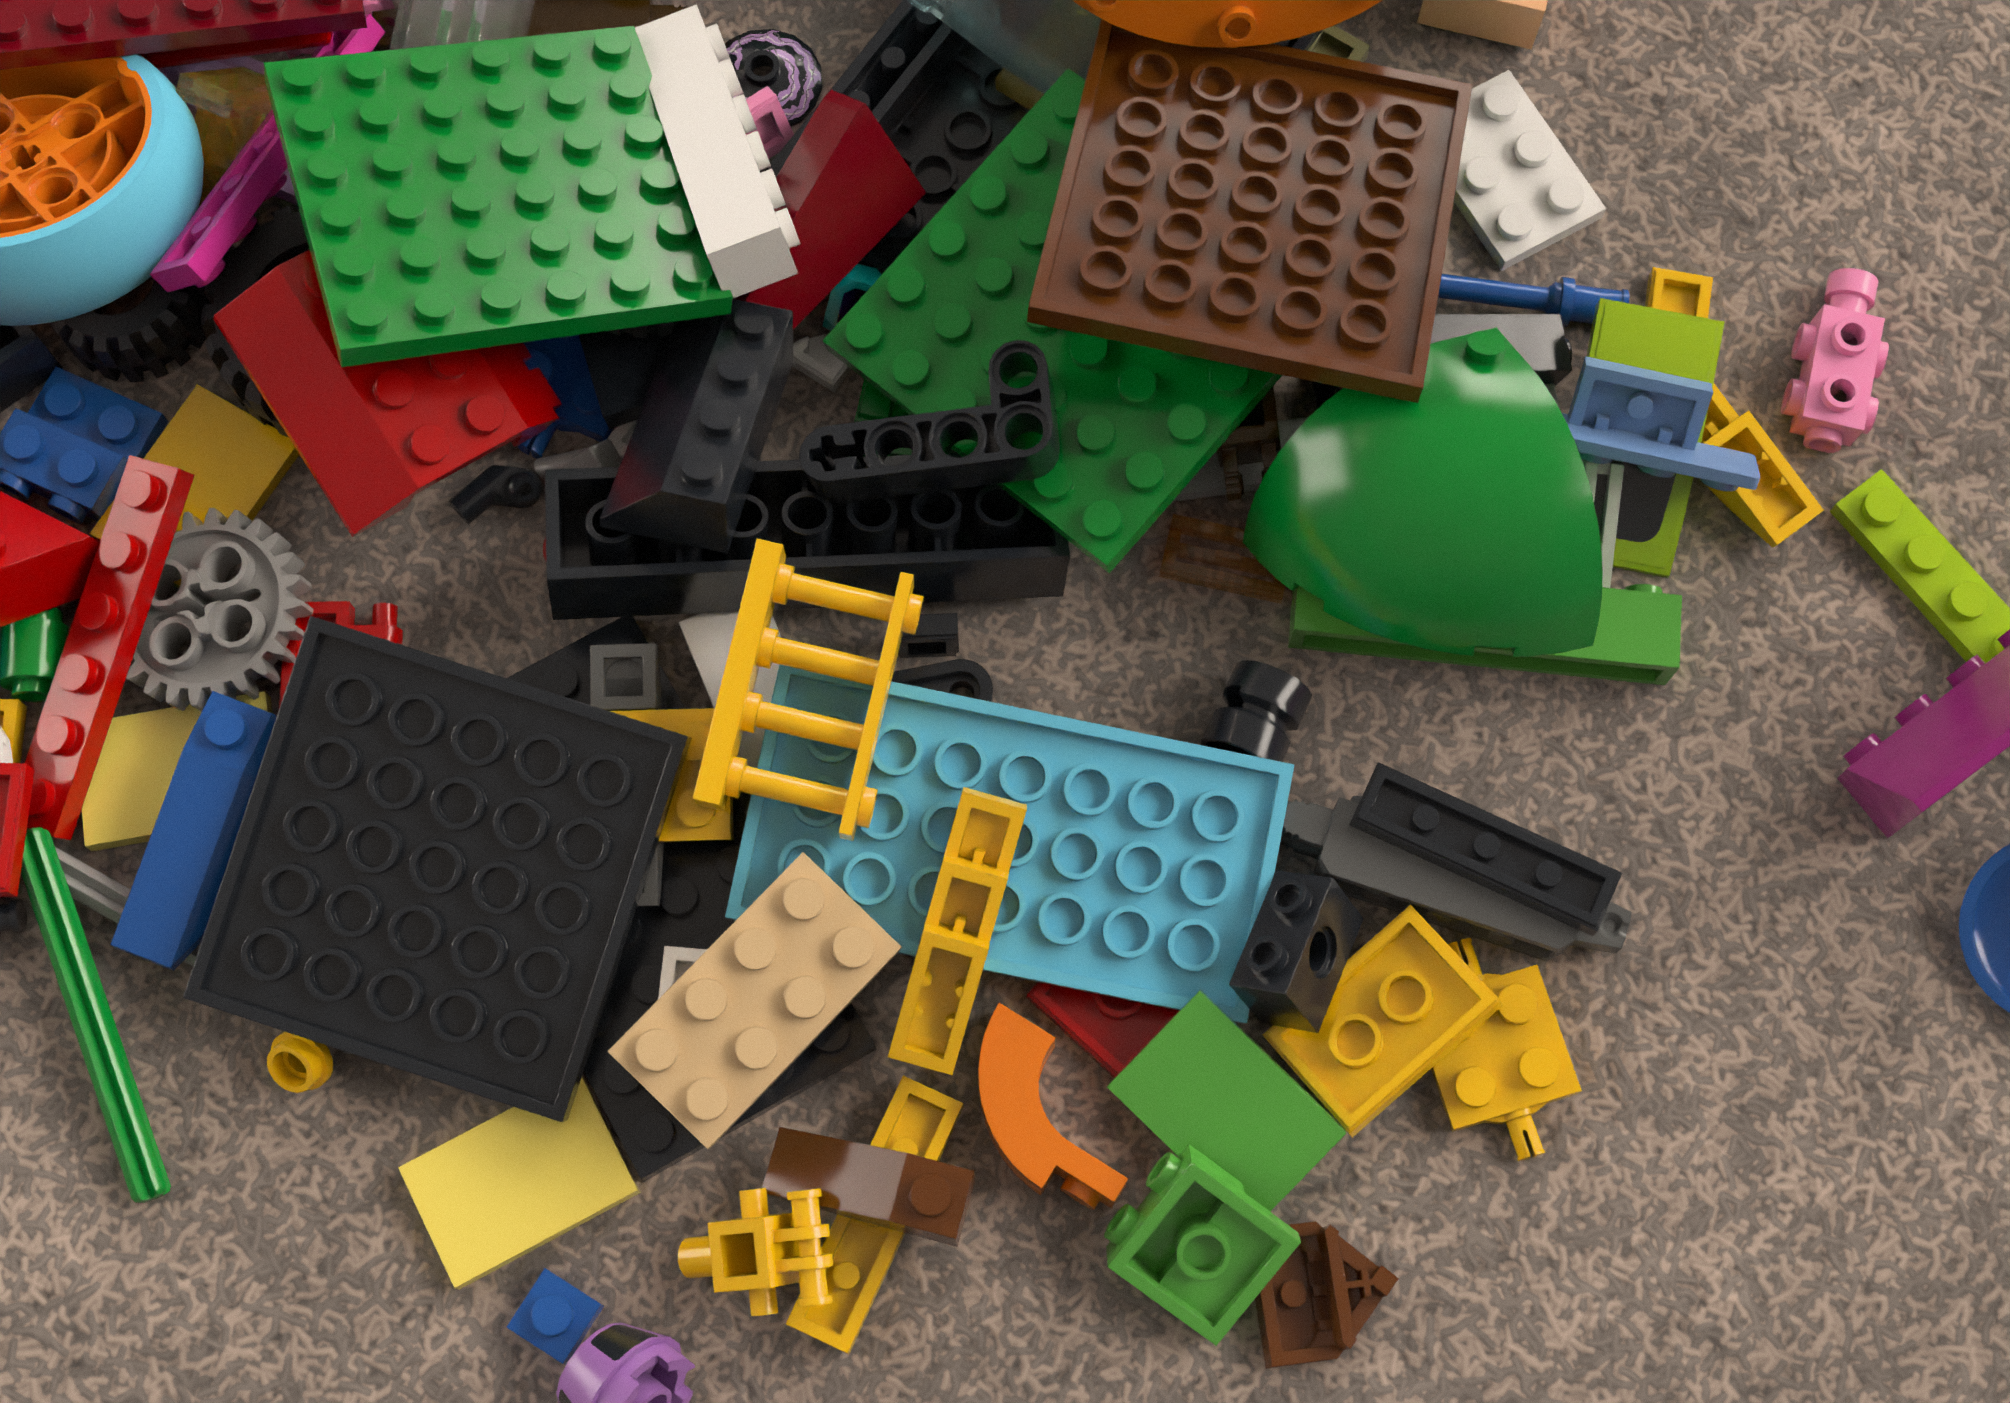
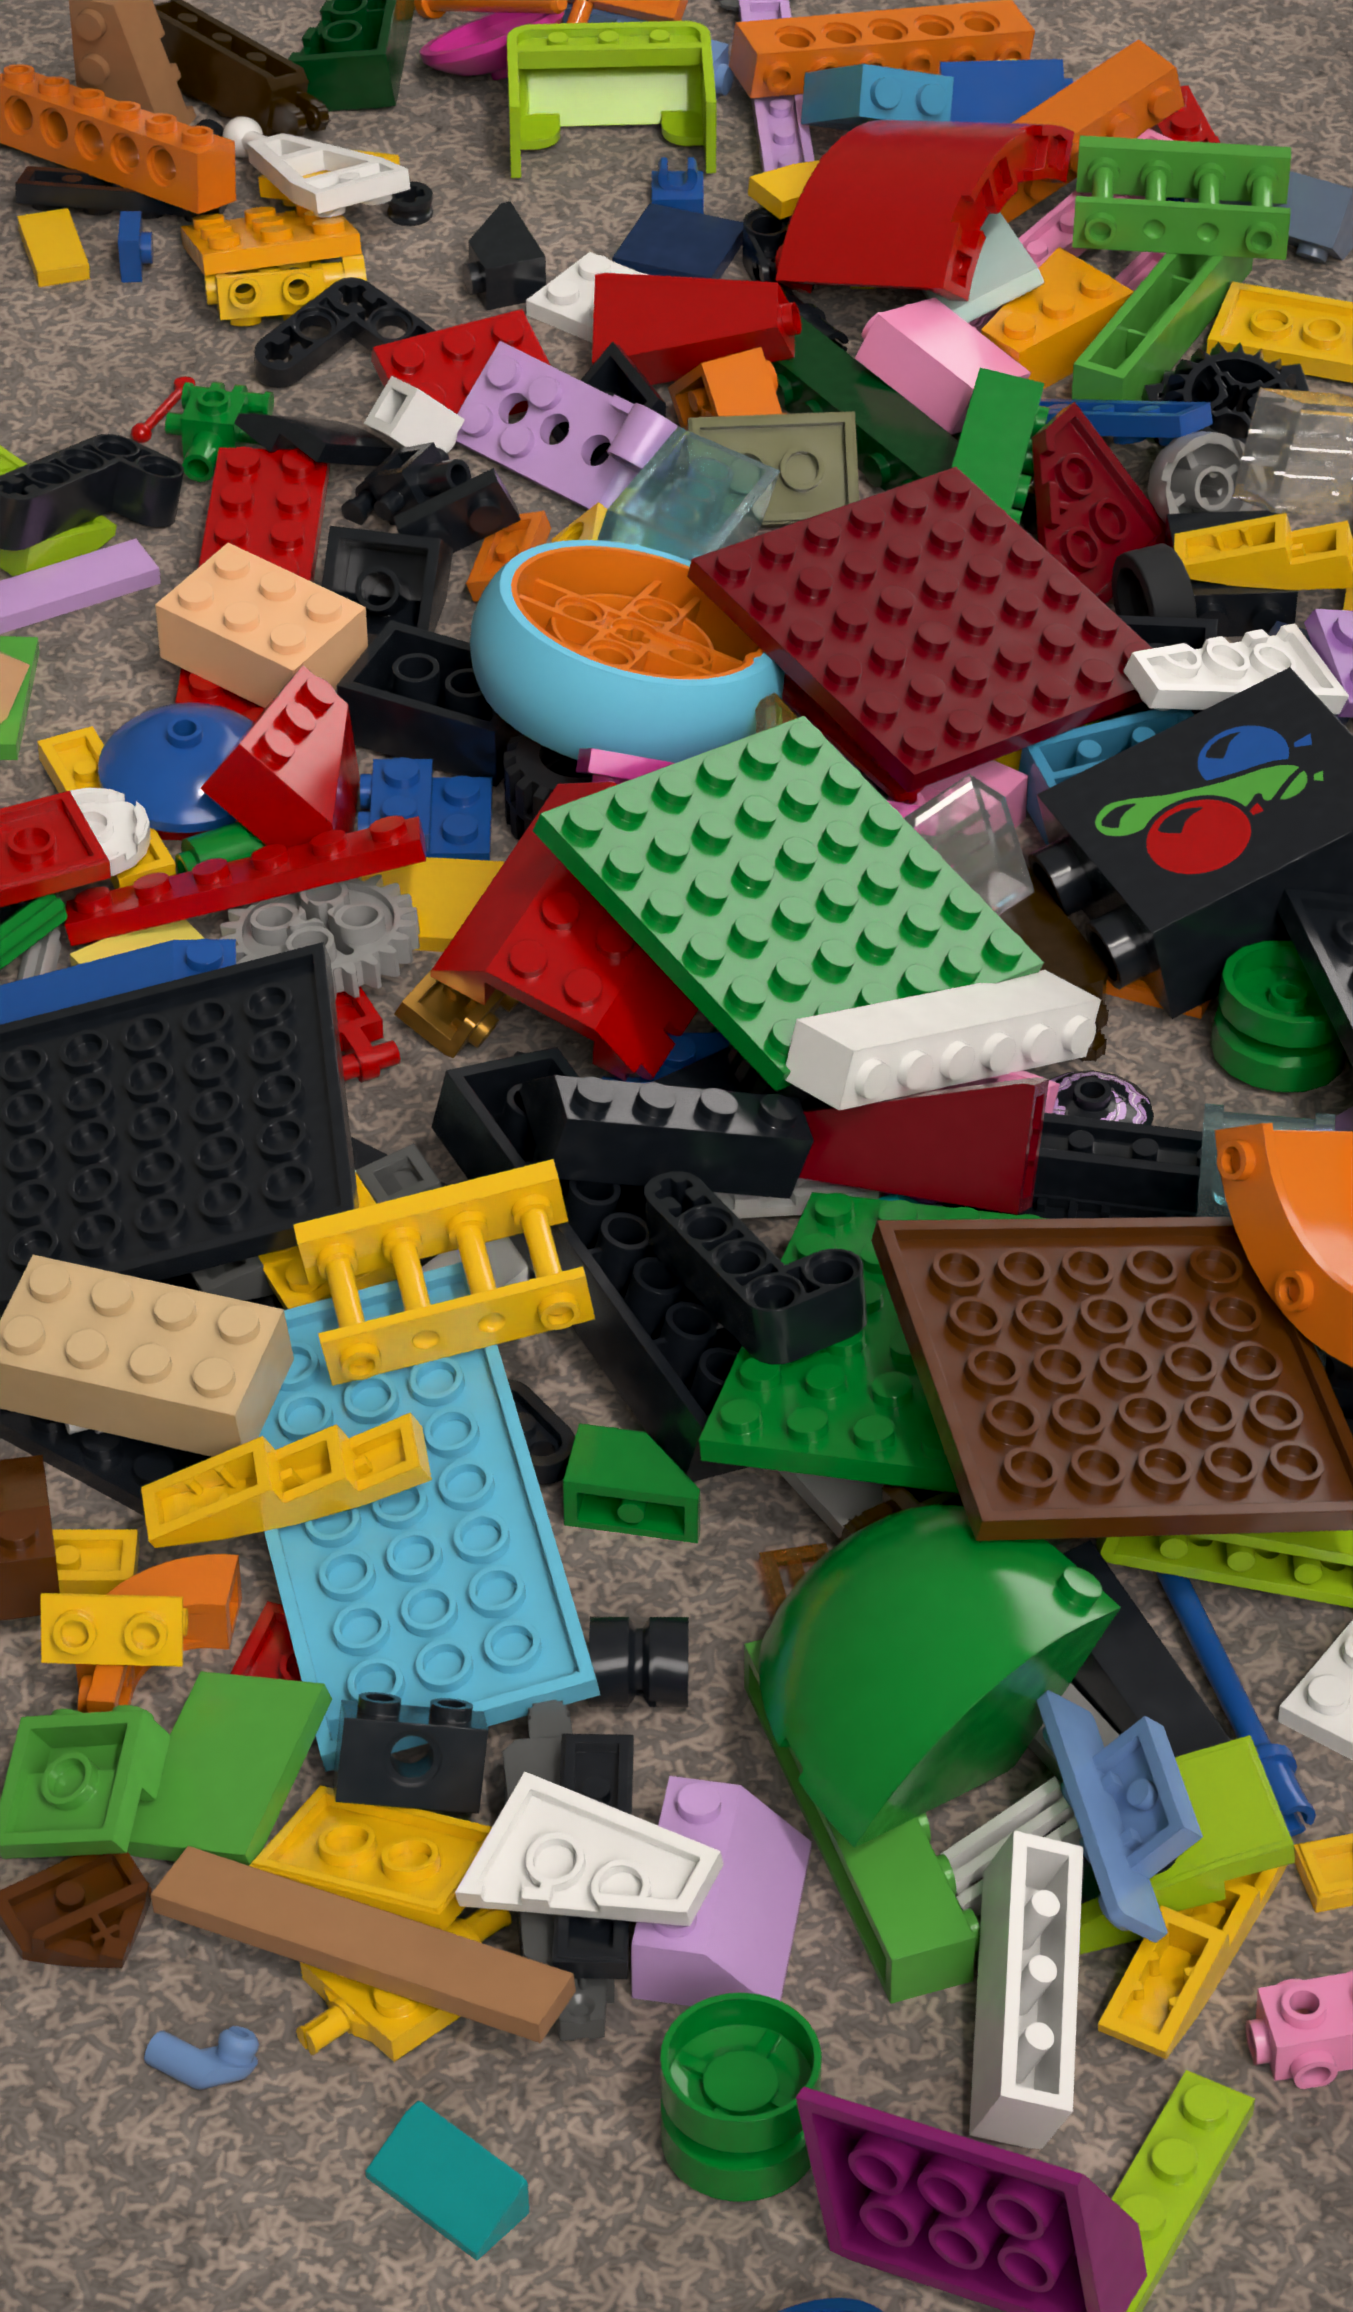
camera: 65 degrees right, 30 degrees down
(349, 557) = (449, 1017): none -> pearl gold bracket
(934, 637) = (581, 1395): black tile -> none
(1040, 640) = (628, 1486): none -> green slope
(1047, 1177) = (113, 1629): none -> yellow hinge
(1483, 1075) = (364, 1943): none -> medium nougat tile
(1525, 1250) = (205, 2067): none -> medium blue arm
(1526, 860) = (586, 1860): none -> white wing
(1531, 768) = (749, 1915): none -> lavender slope
(1726, 1103) = (450, 2181): none -> teal slope
(1752, 581) = (1027, 1991): none -> white brick
(1774, 842) = (732, 2095): none -> green wheel

